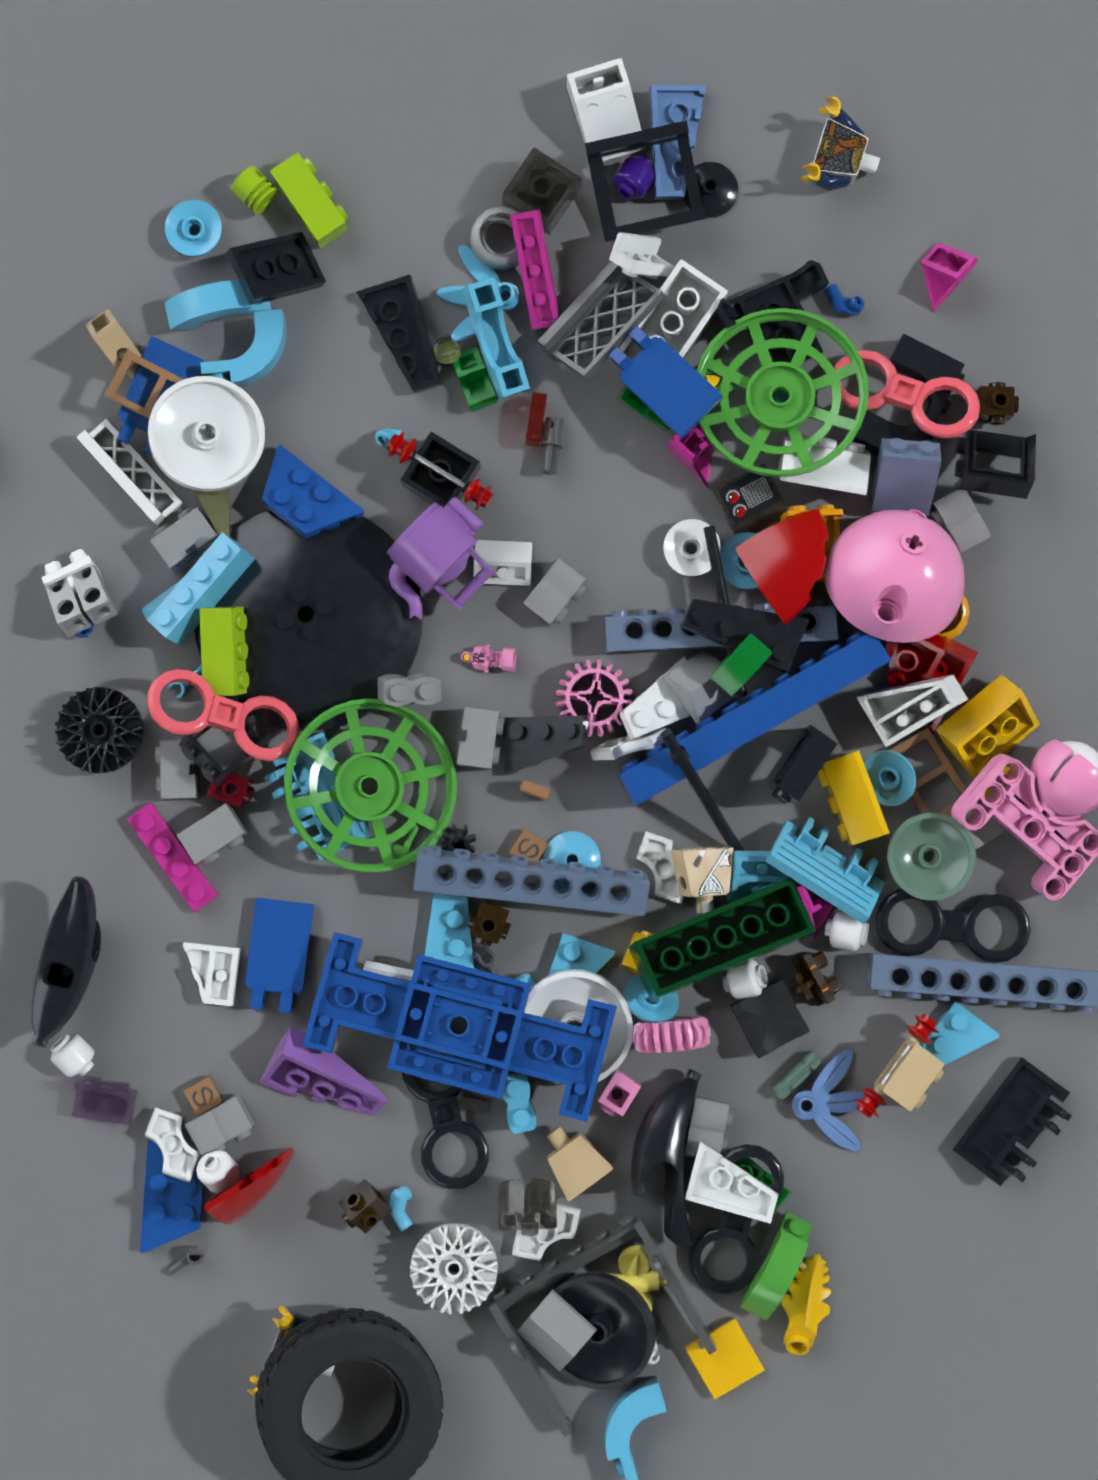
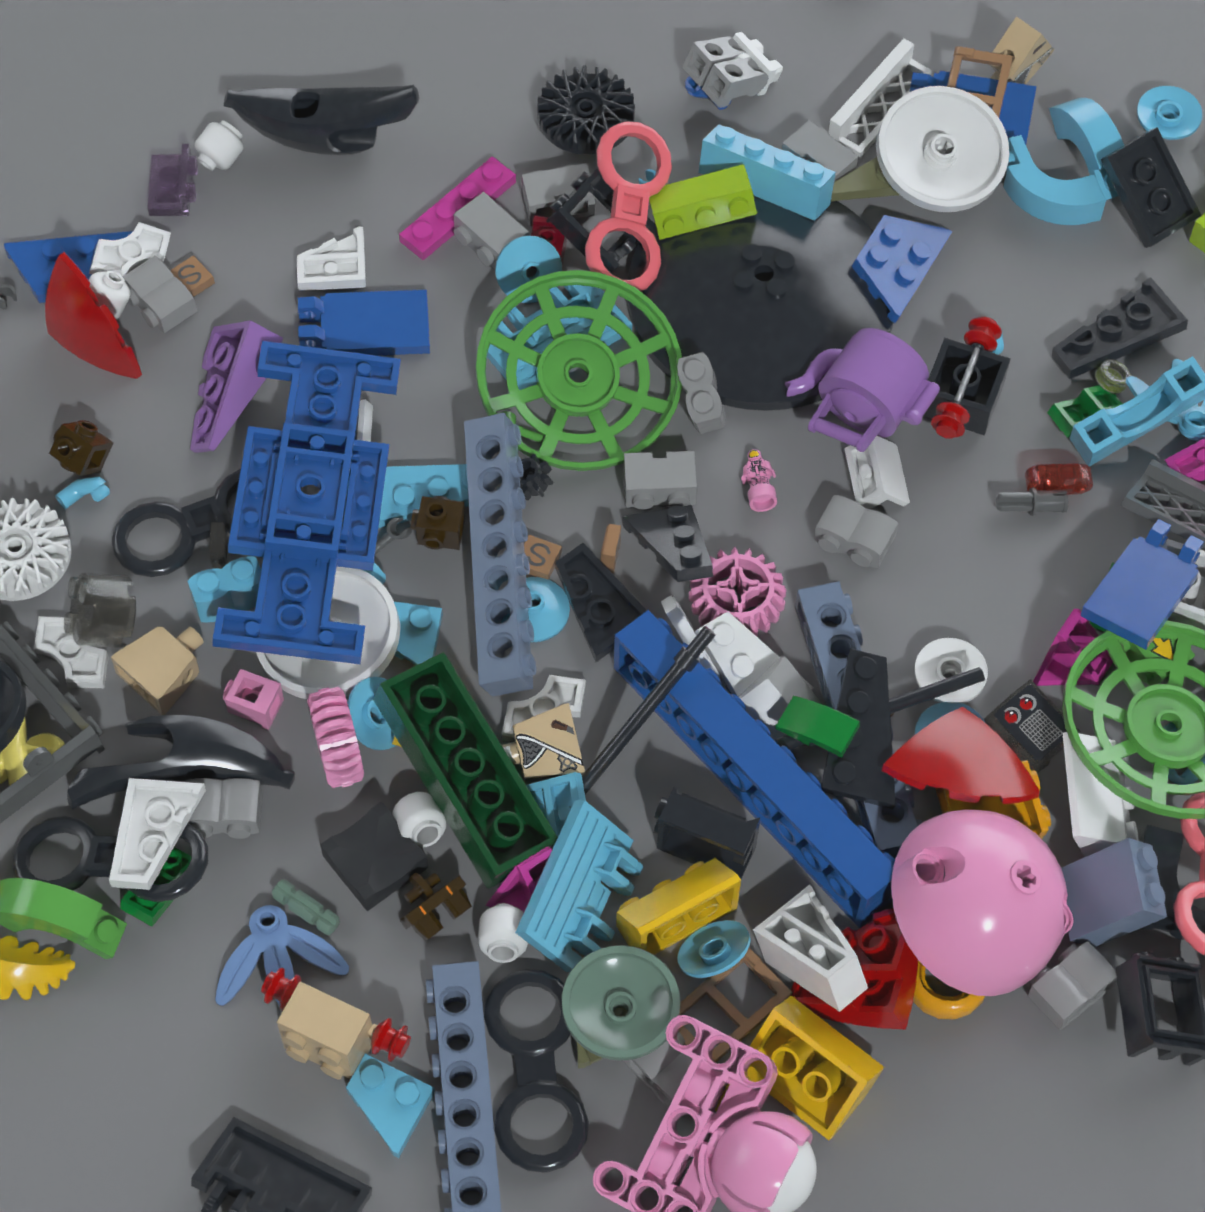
camera: 80 degrees right, 25 degrees down
(256, 809) = (519, 256): none -> medium azure dish
(579, 807) = (597, 599): none -> black wing

